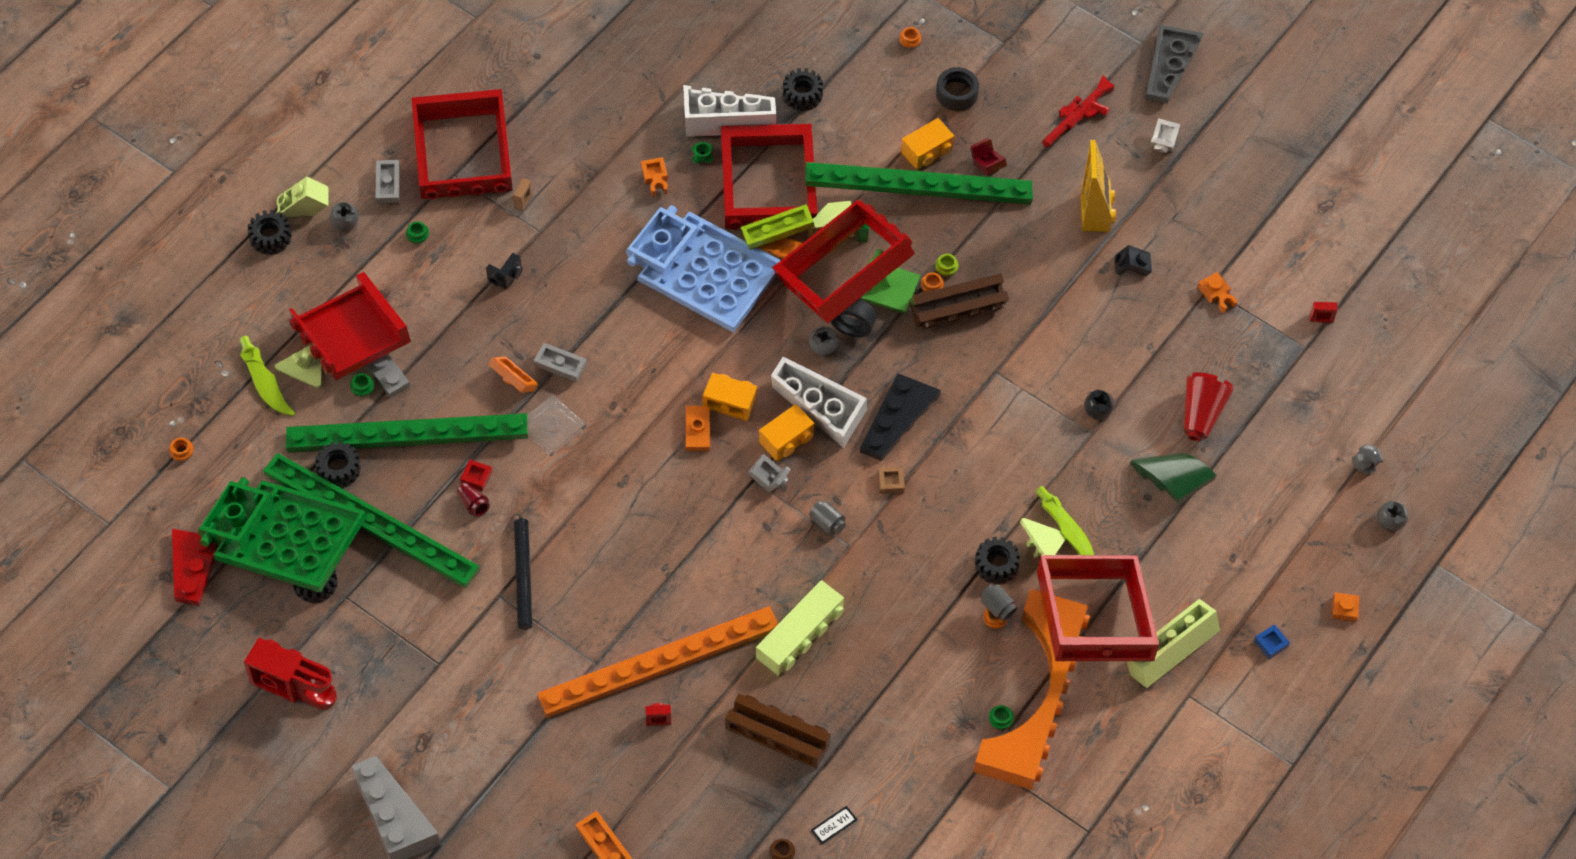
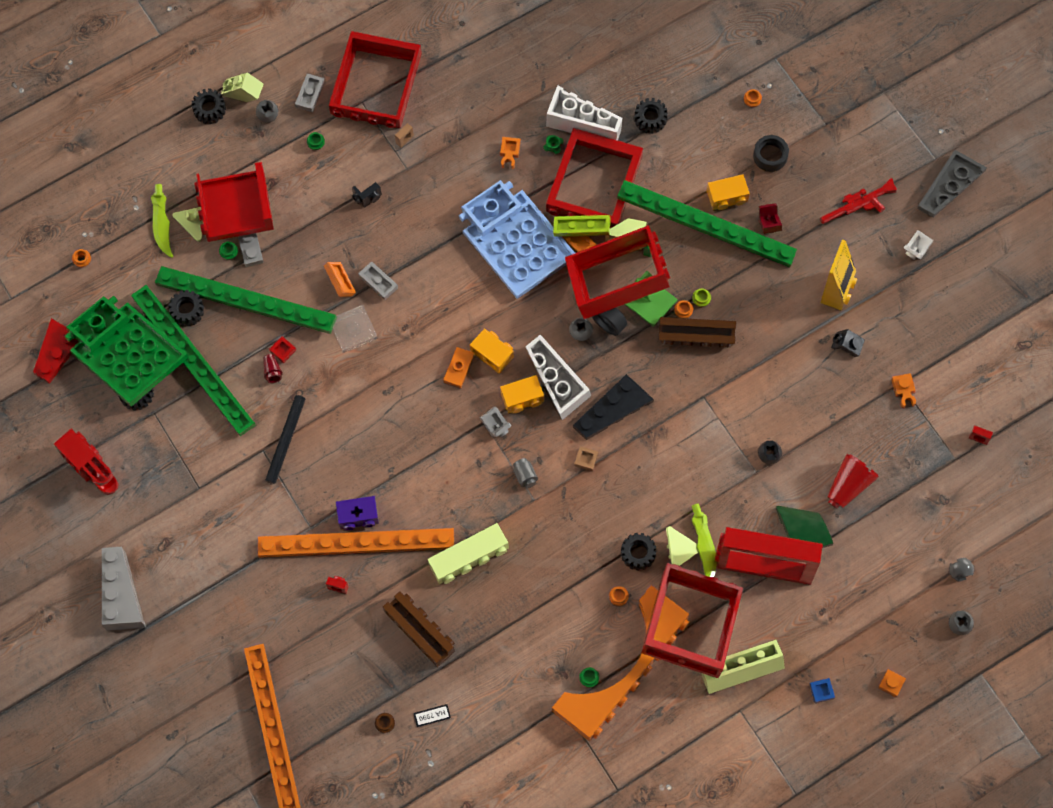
camera: 25 degrees right, 10 degrees up
(647, 626) = (347, 513): none -> dark purple brick
(998, 602) = (622, 587): dark grey brick -> none
(1153, 487) = (770, 546): none -> red window

